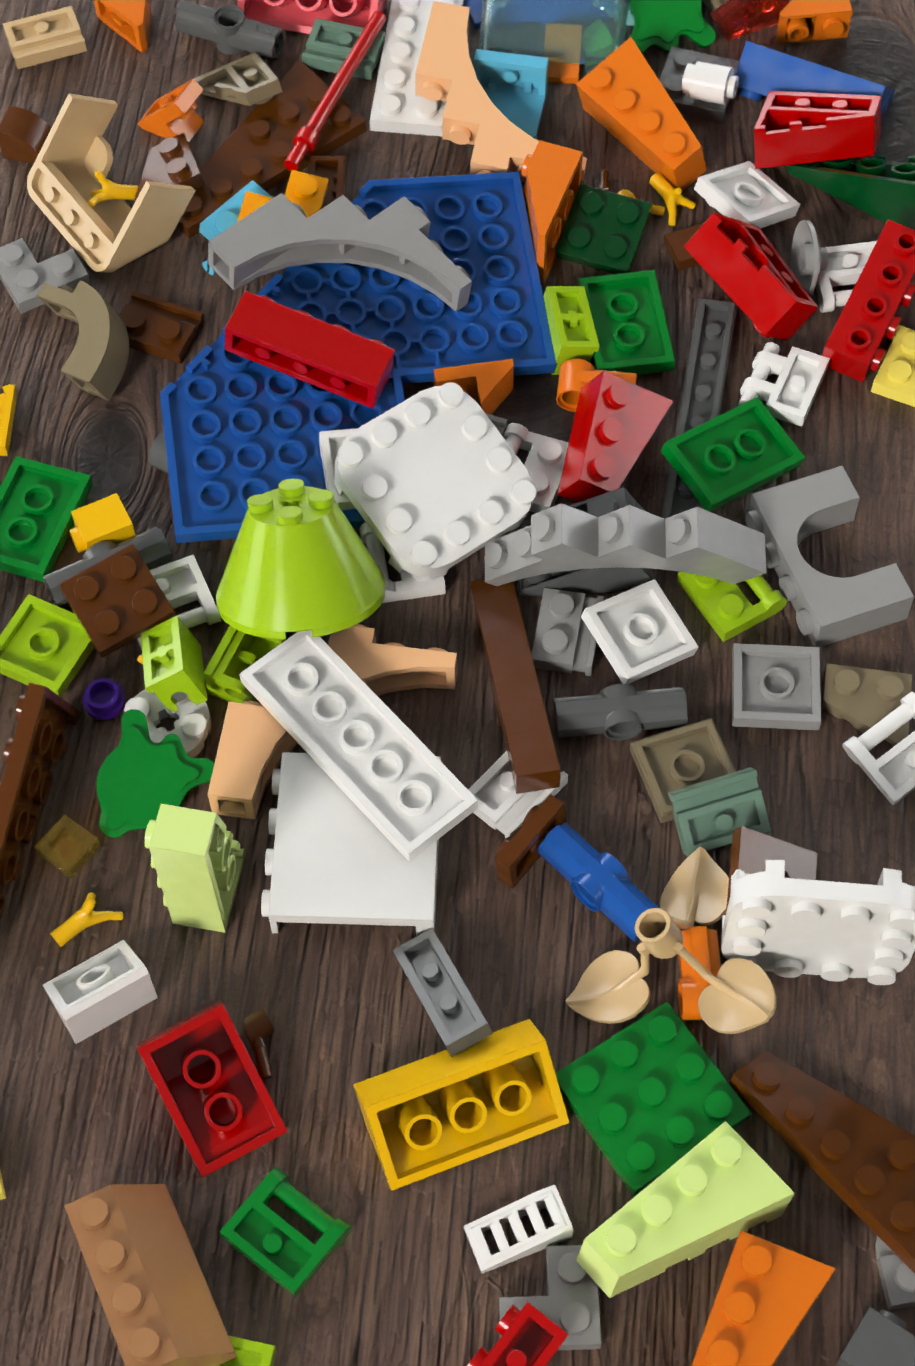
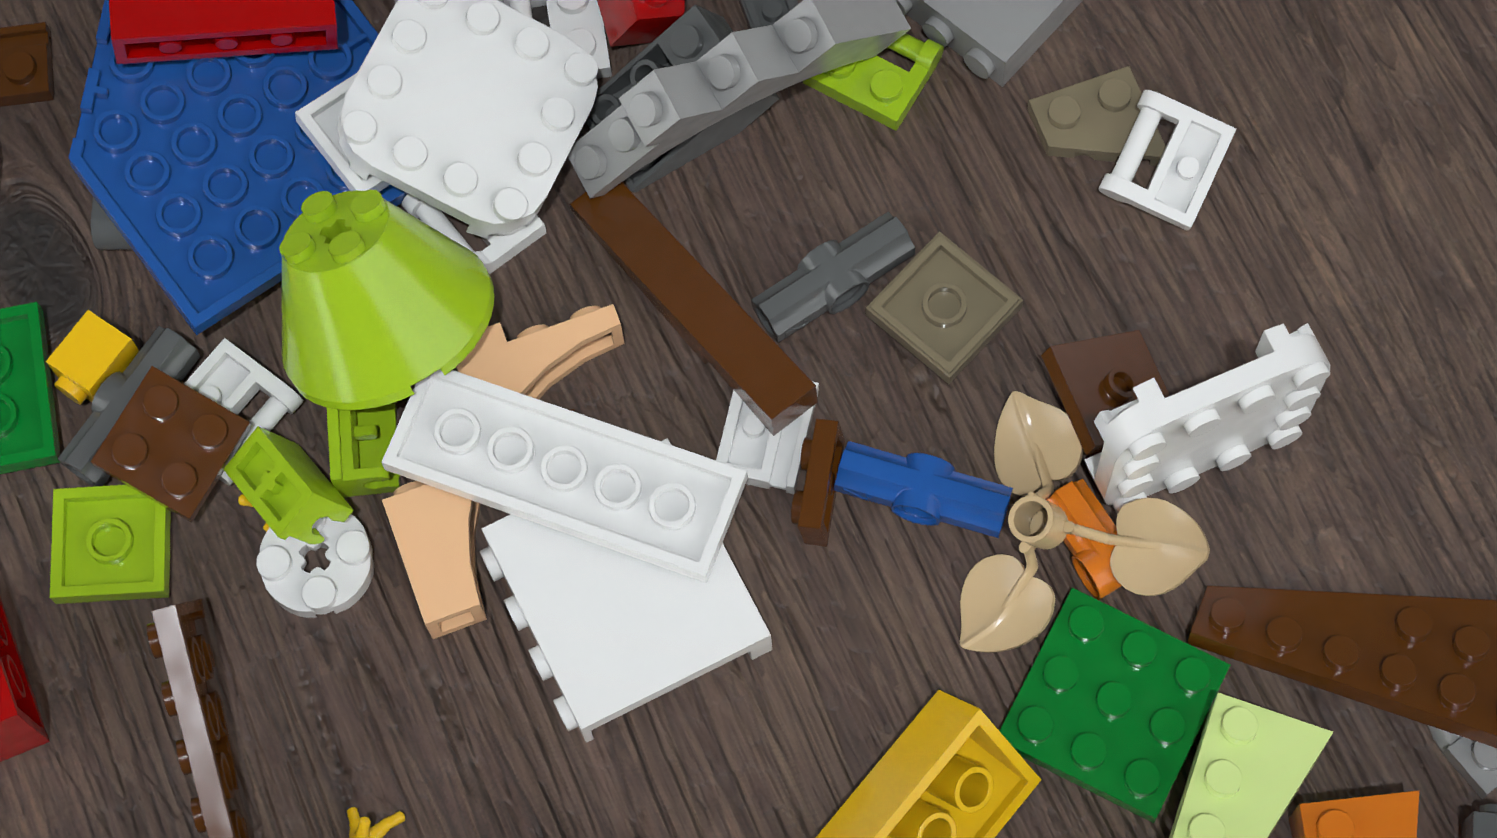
camera: 25 degrees left, 10 degrees up
(67, 846) = (291, 769): clear yellow plate -> none
(103, 699) = (223, 570): dark purple plate -> none
(144, 776) = (336, 644): green tile -> none
(195, 865) = (472, 725): yellowish green wedge -> none
(442, 992) = (826, 711): plate -> none
(561, 635) = (715, 208): light grey plate -> none
(639, 632) = (802, 169): white plate -> none
(716, 807) = (1007, 338): sand green plate -> none
(776, 686) = (988, 157): light grey plate -> none

